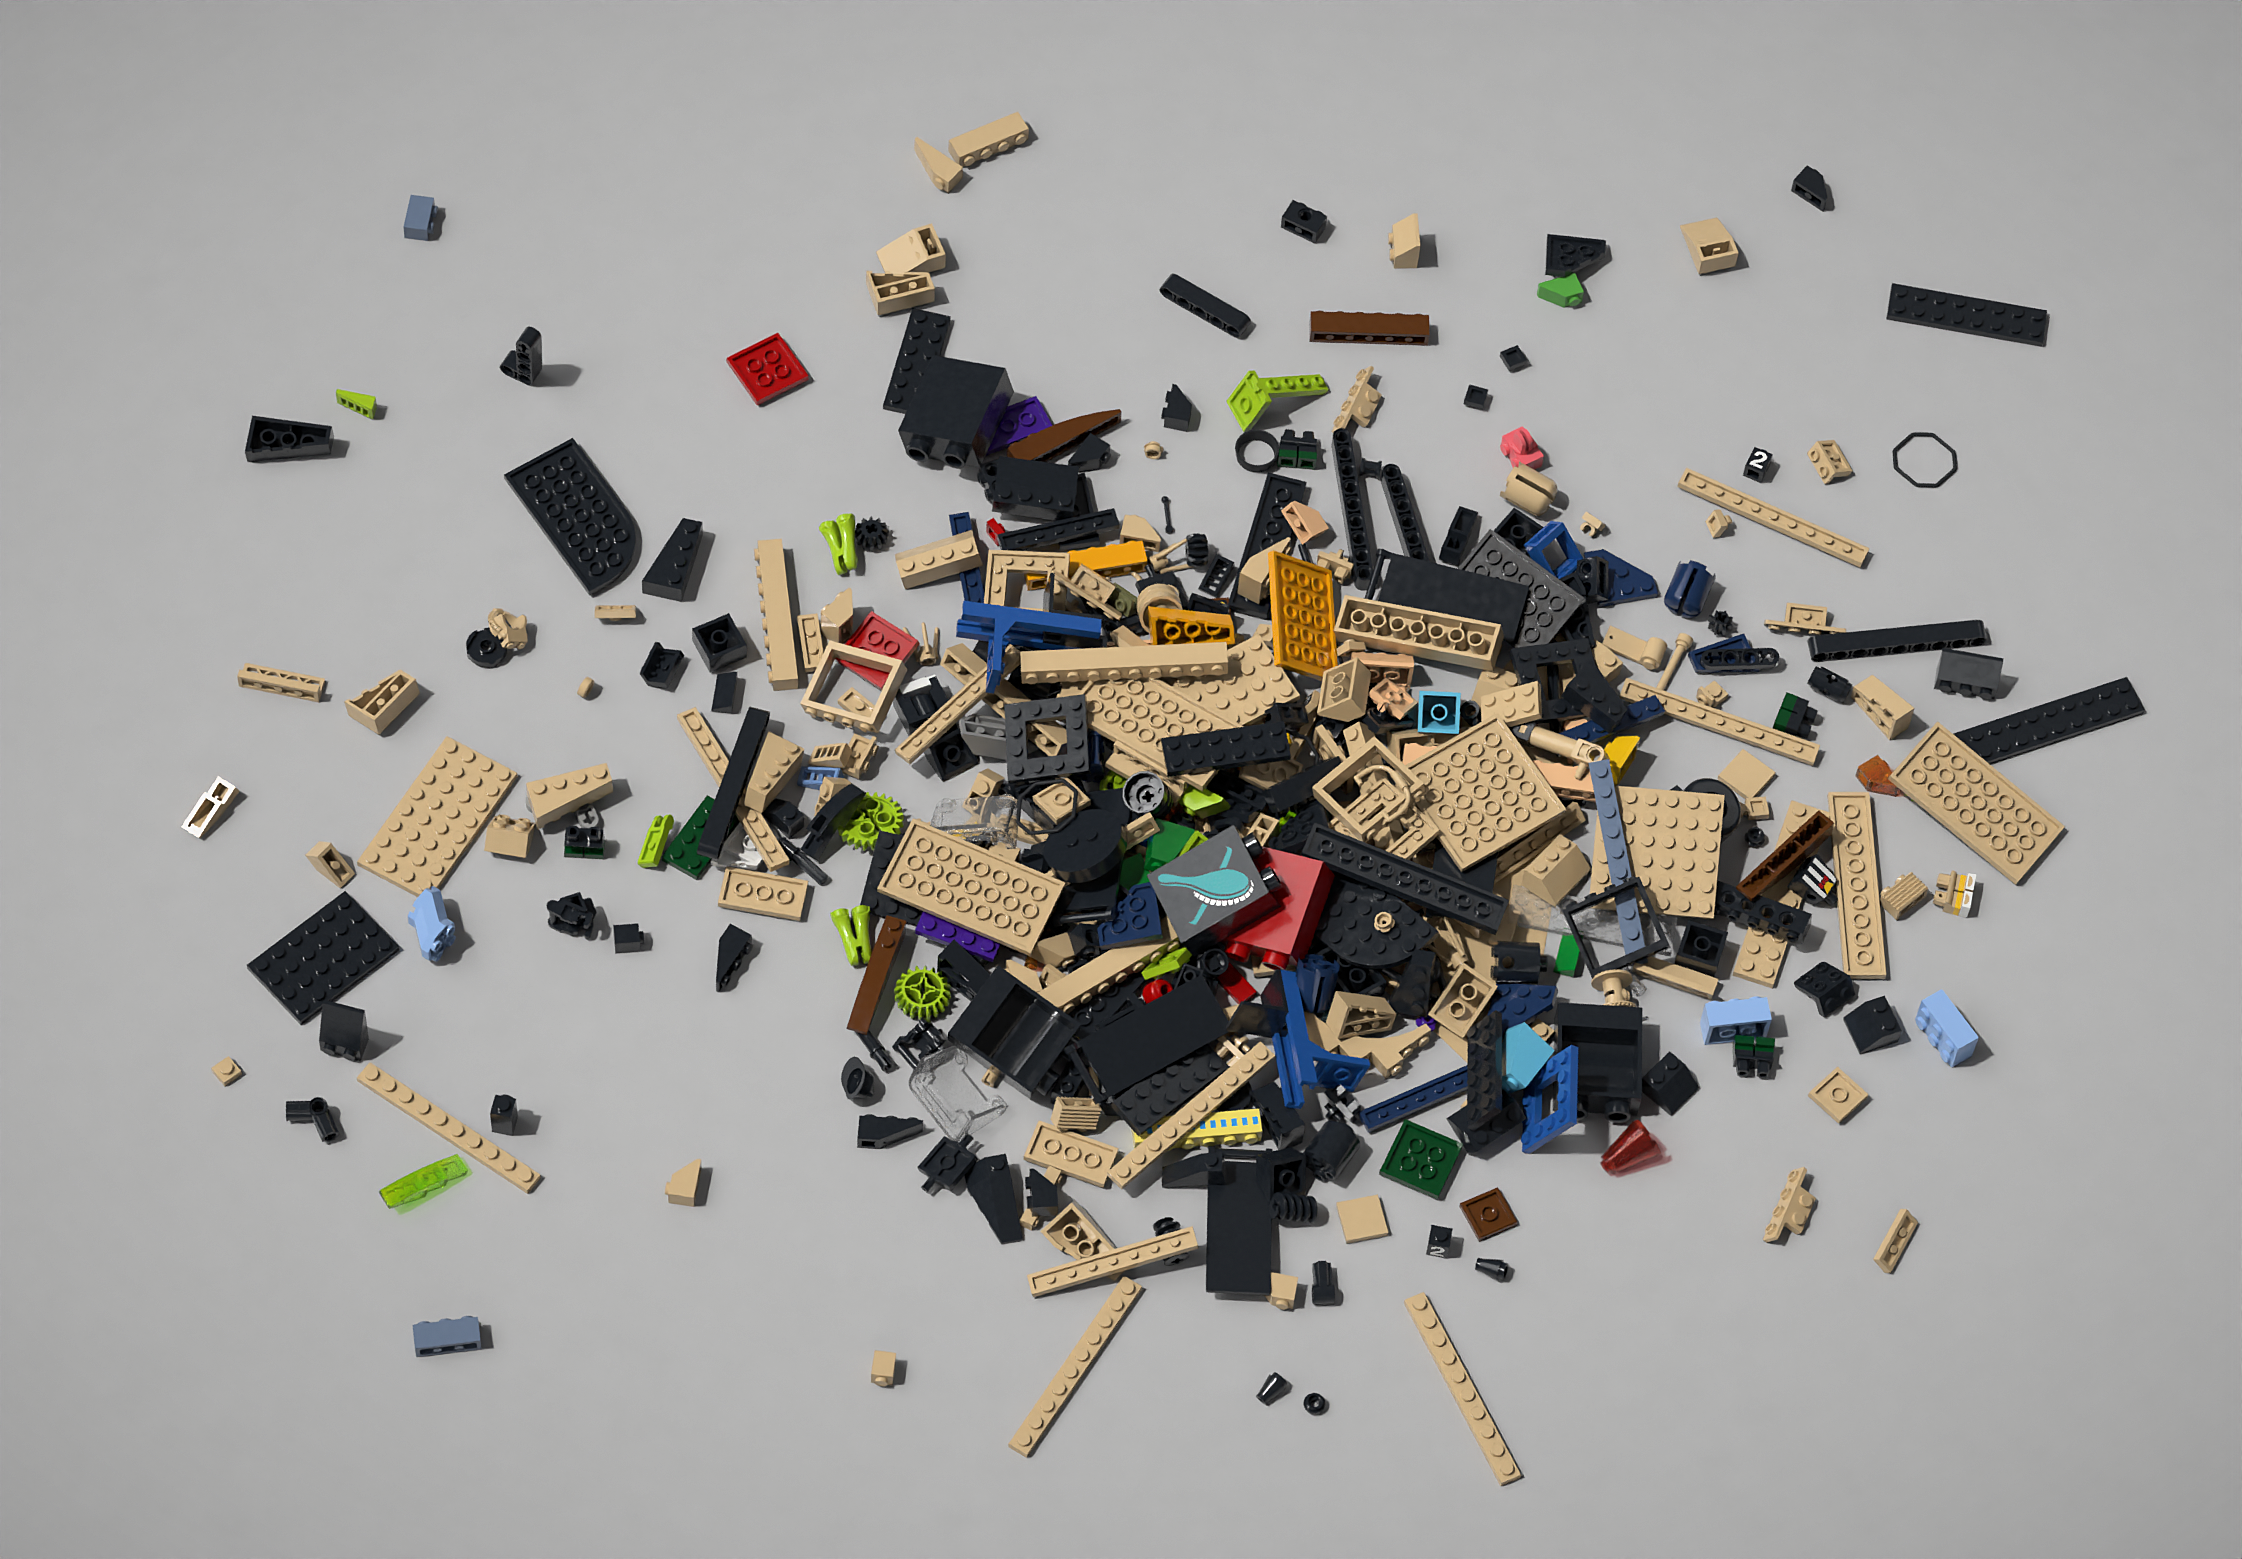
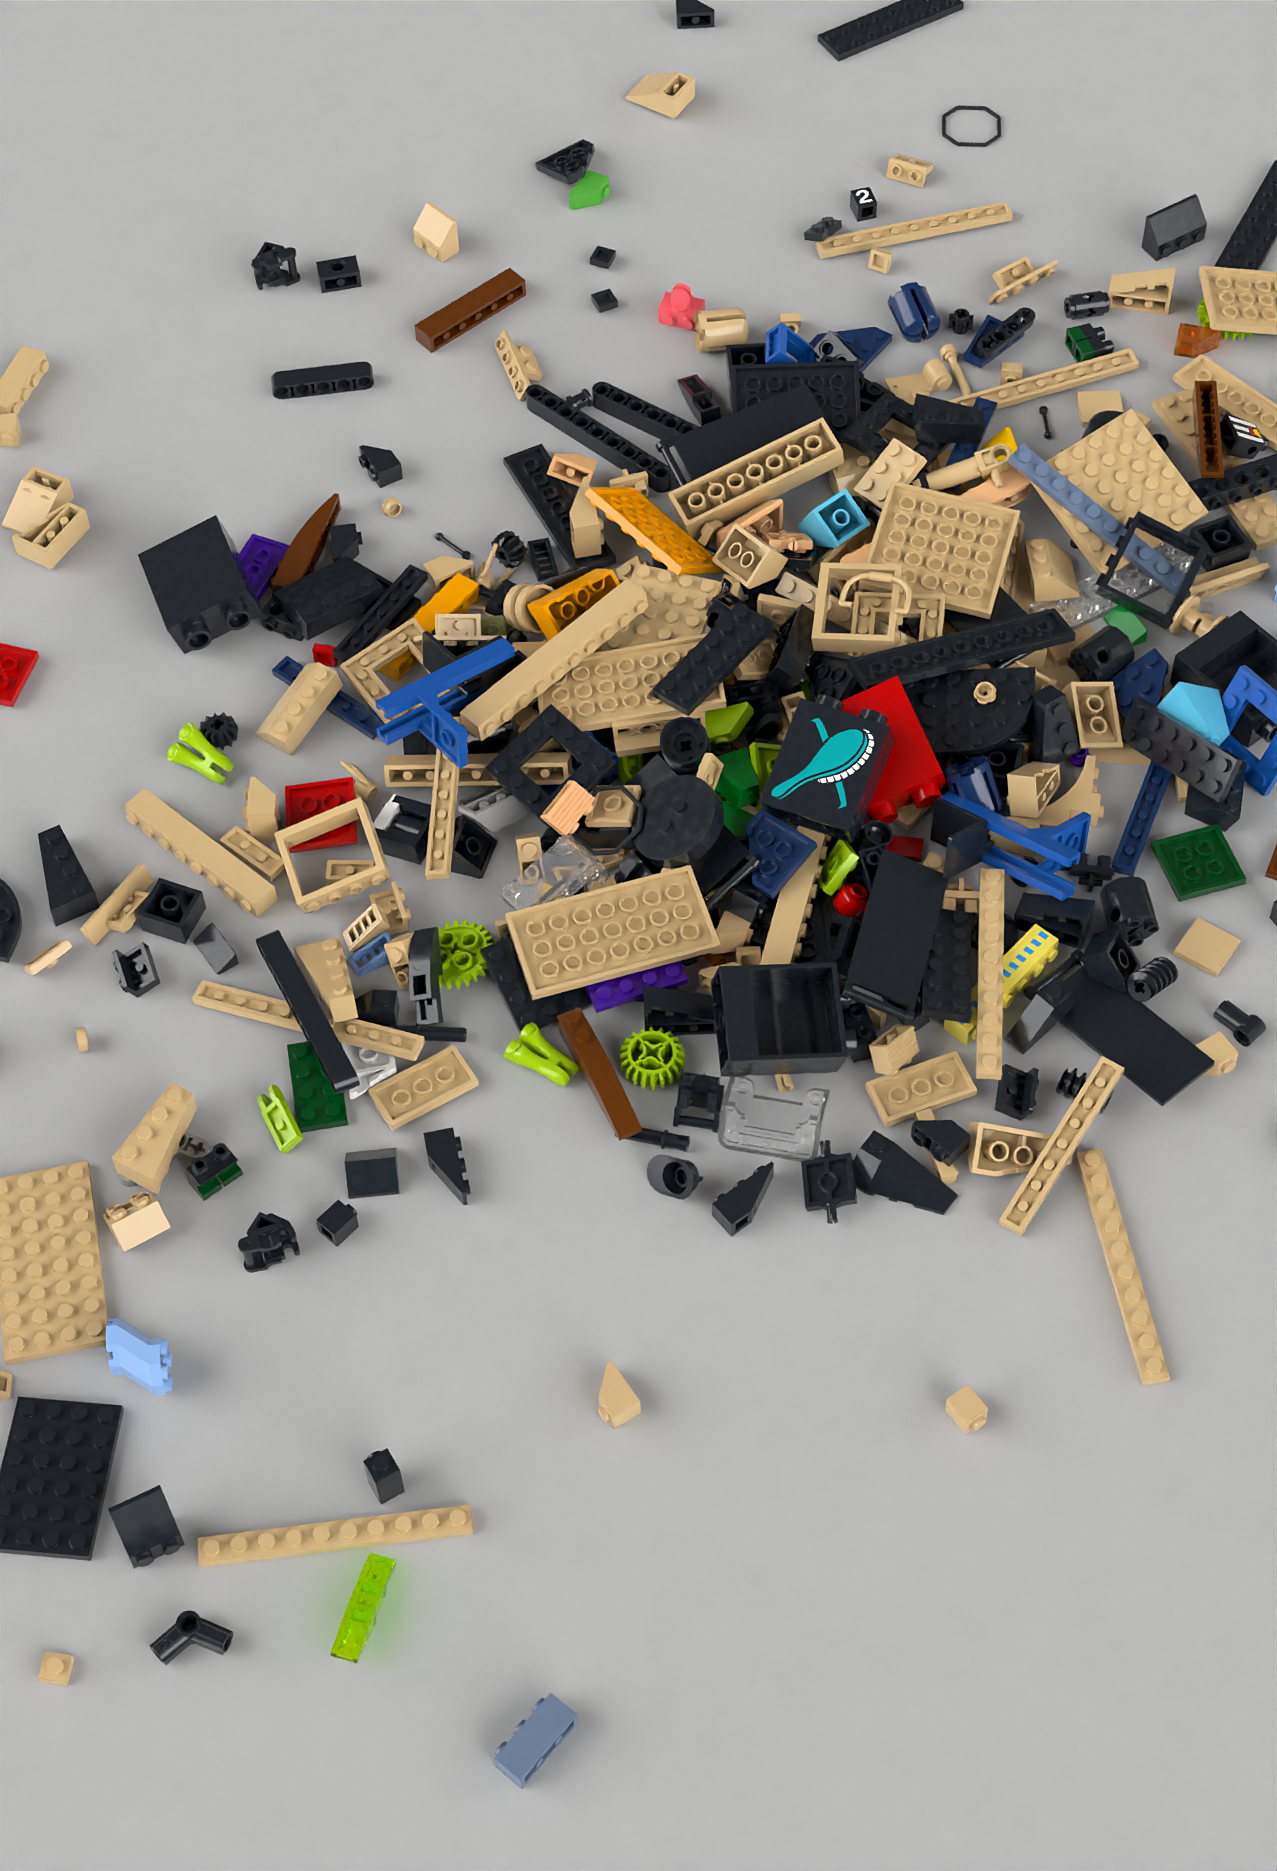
camera: 35 degrees left, 5 degrees down
(679, 923) = (372, 1173): none -> black slope
(691, 613) = (120, 908): none -> tan bracket
(921, 340) = (121, 580): black plate -> none
(1026, 778) = (568, 808): none -> light nougat brick
(1127, 1205) = (1017, 1092): none -> black bracket
(1255, 394) = (438, 406): lime bracket -> none
(1260, 179) = (268, 263): none -> black piece
(1260, 435) = (476, 436): black tyre -> none
(1303, 446) = (509, 428): hips -> none
(1701, 463) = (823, 229): none -> black plate
(1703, 743) = (1043, 411): none -> black hinge
(1897, 640) = (1096, 246): black beam -> none

